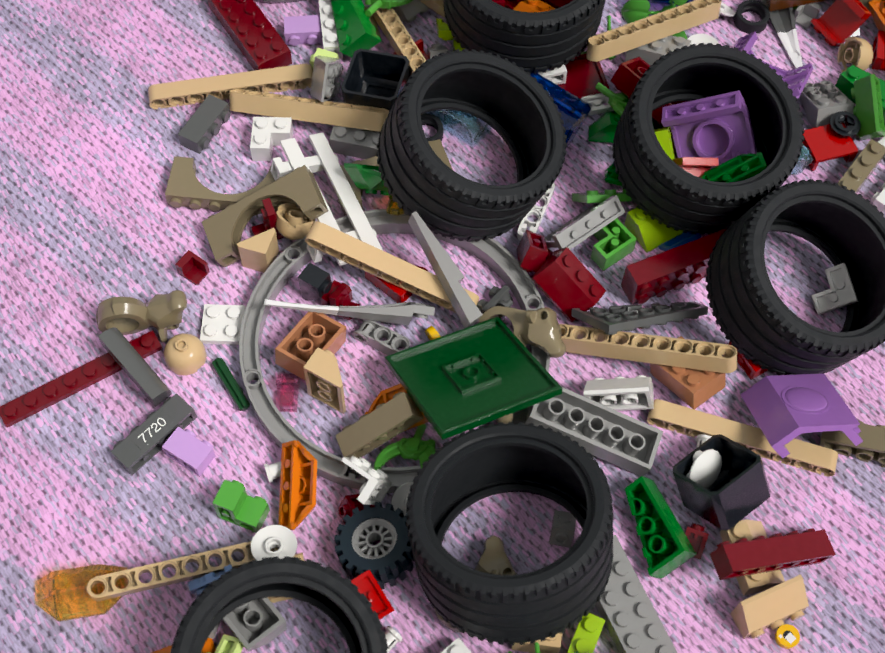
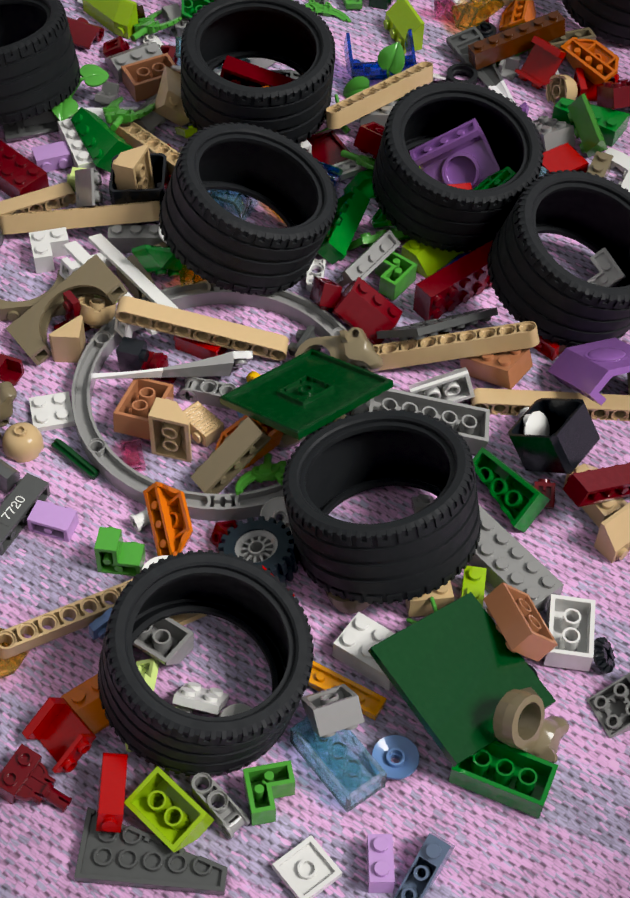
camera: 15 degrees left, 10 degrees down
(364, 373) = (203, 424): none -> tan brick
(372, 72) = (134, 169): none -> tan slope
(377, 483) = (243, 503): white bracket -> none
(446, 271) = (253, 318): light grey slope -> none
(579, 164) = (345, 223): none -> green wedge
(851, 121) = (575, 140): black gear -> none

